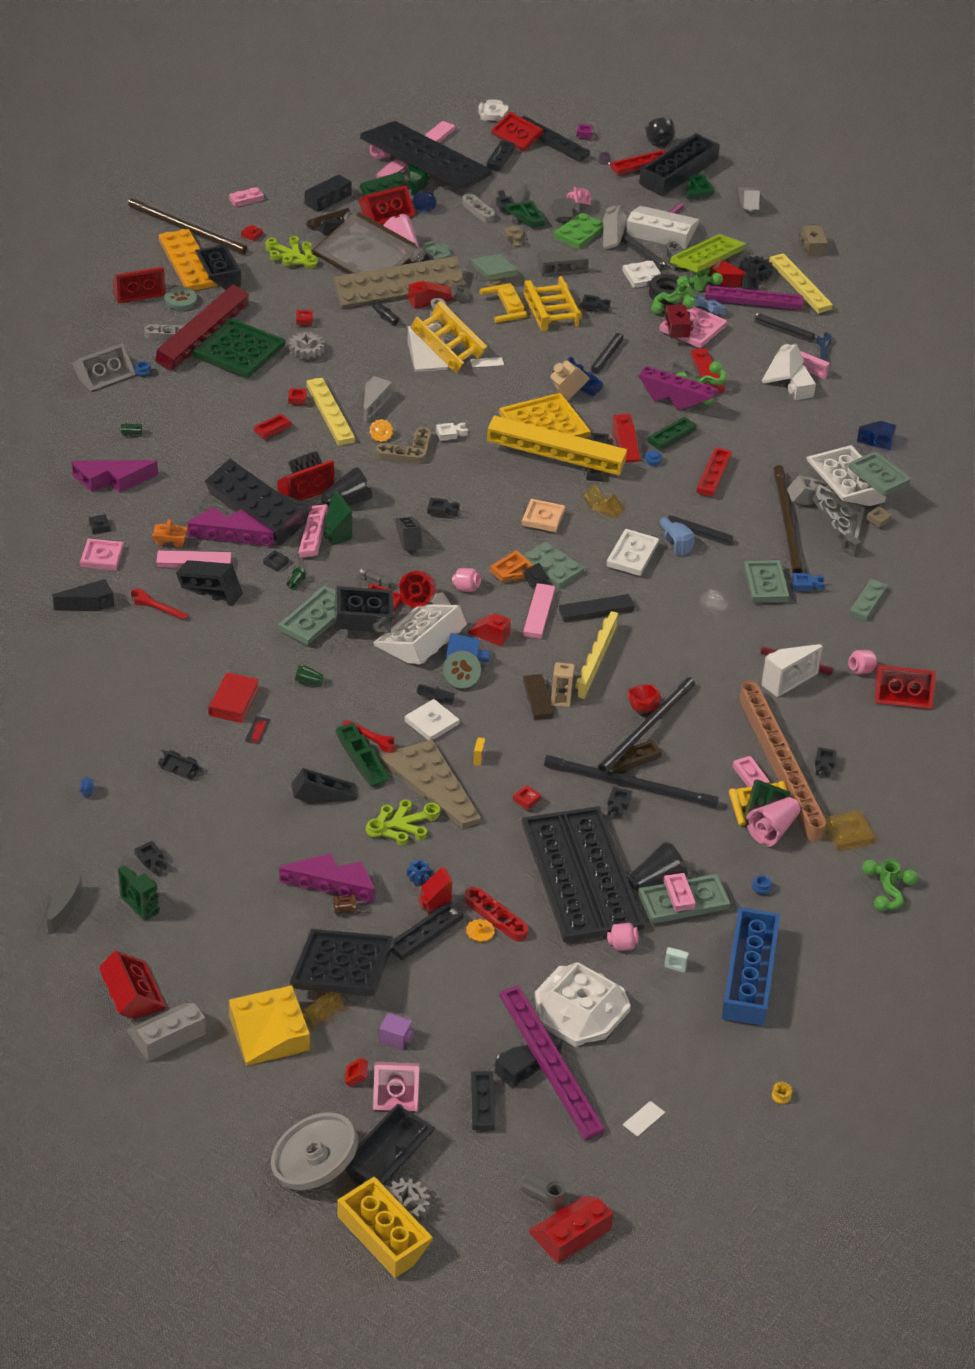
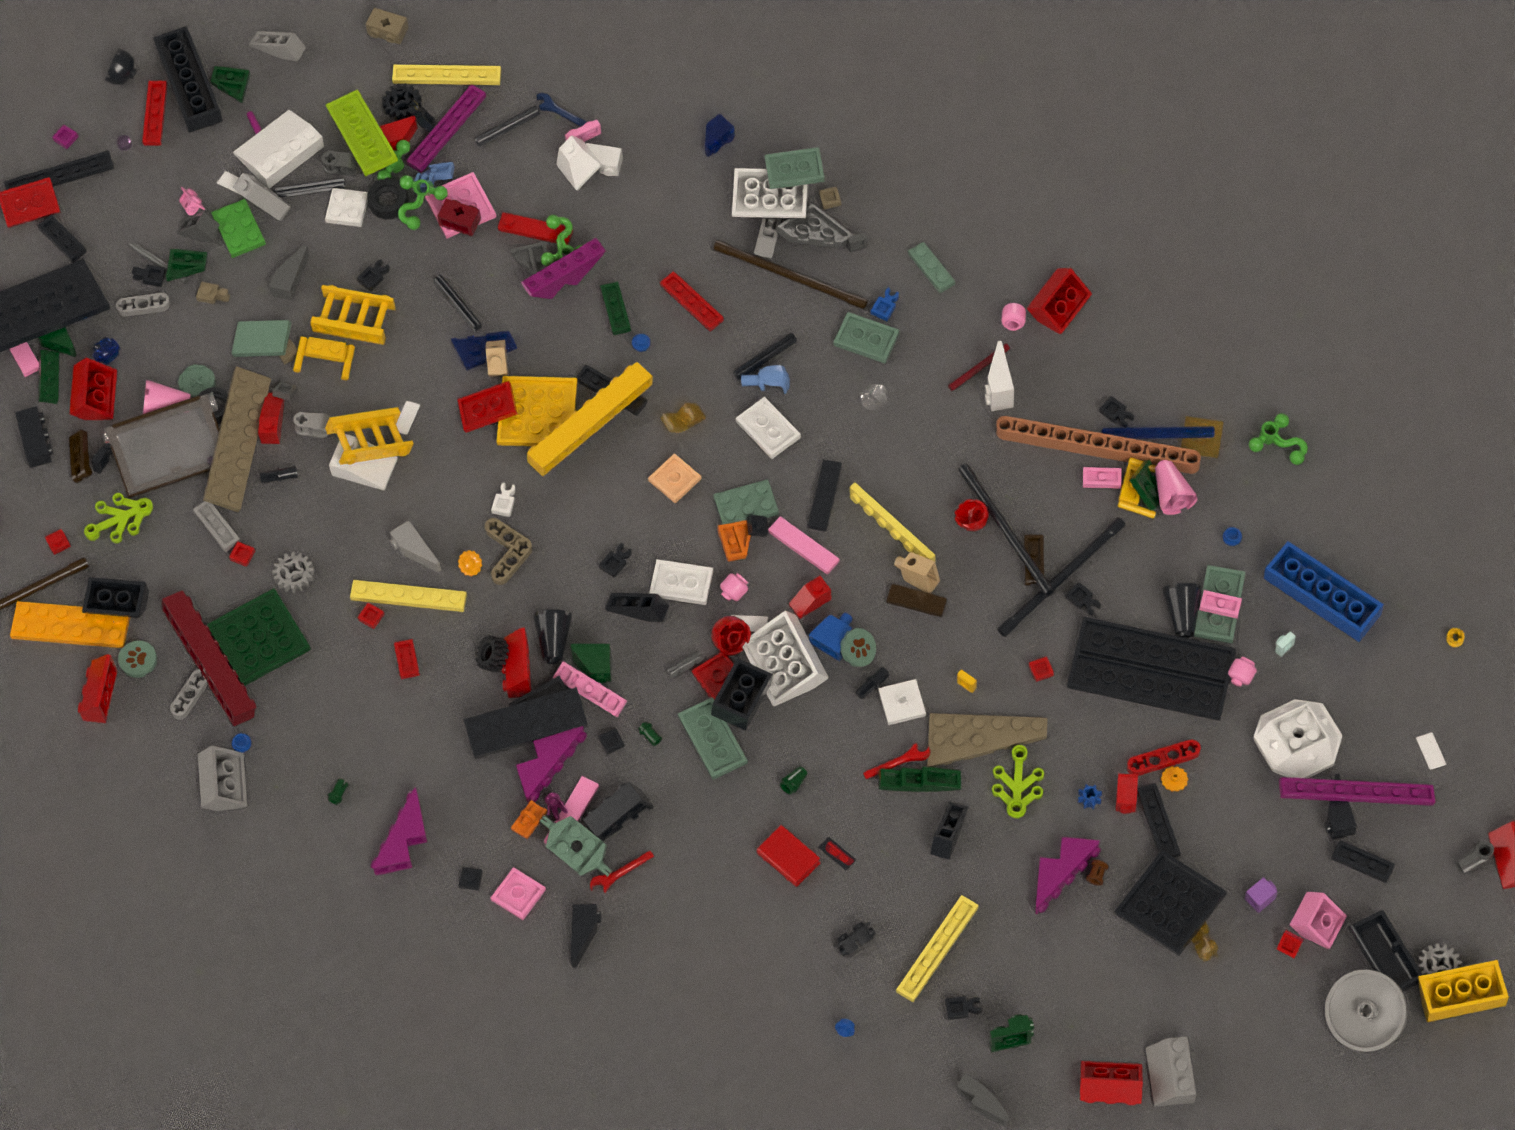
camera: 55 degrees left, 20 degrees up
(162, 554) = (562, 837): none -> sand green plate
(196, 543) = (553, 802): none -> flat silver piece
(201, 821) = (937, 948): none -> light yellow plate
(269, 1025) = (1209, 990): yellow slope -> none
(319, 297) = (216, 525): none -> light grey plate
(449, 549) = (681, 582): none -> white plate
(526, 393) = (487, 406): none -> red tile
(625, 436) = (599, 351): red slope -> none
(827, 795) = (1161, 432): none -> clear blue axle

